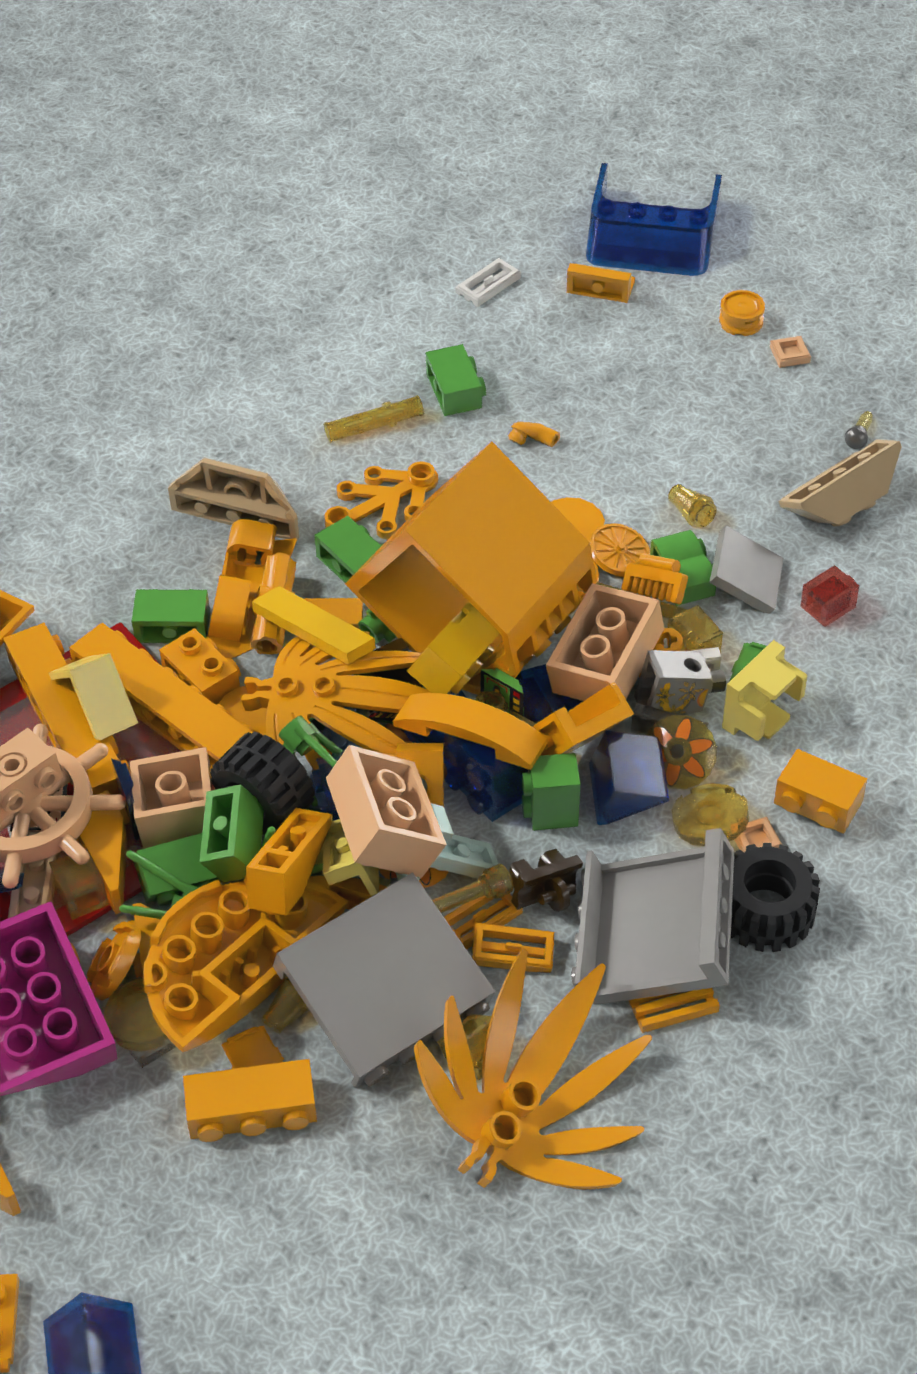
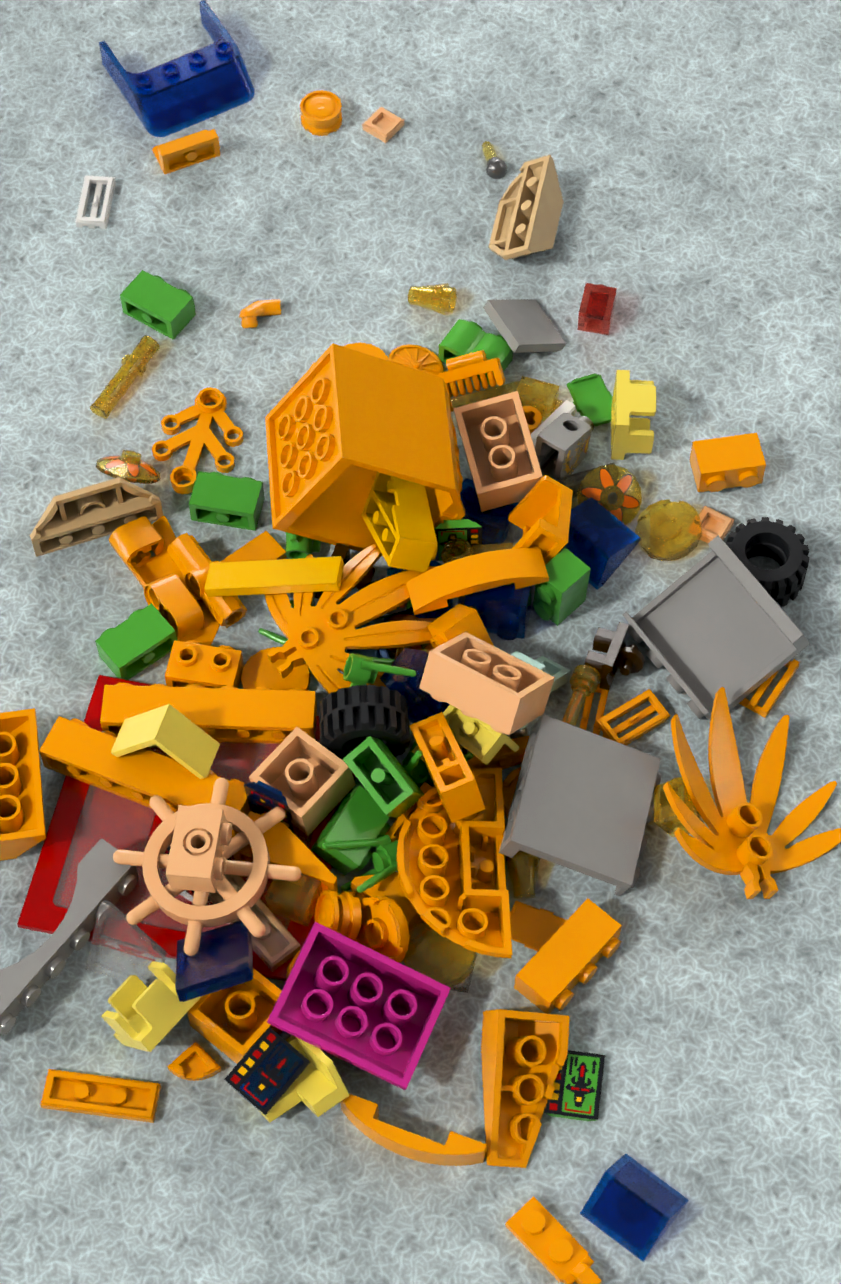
camera: 40 degrees left, 10 degrees up
(98, 927) = (339, 912): none -> light orange wheel
(109, 1162) = (518, 1075): none -> light orange wedge
(149, 1210) = (577, 1087): none -> piece
(299, 483) = (128, 467): none -> clear yellow dish

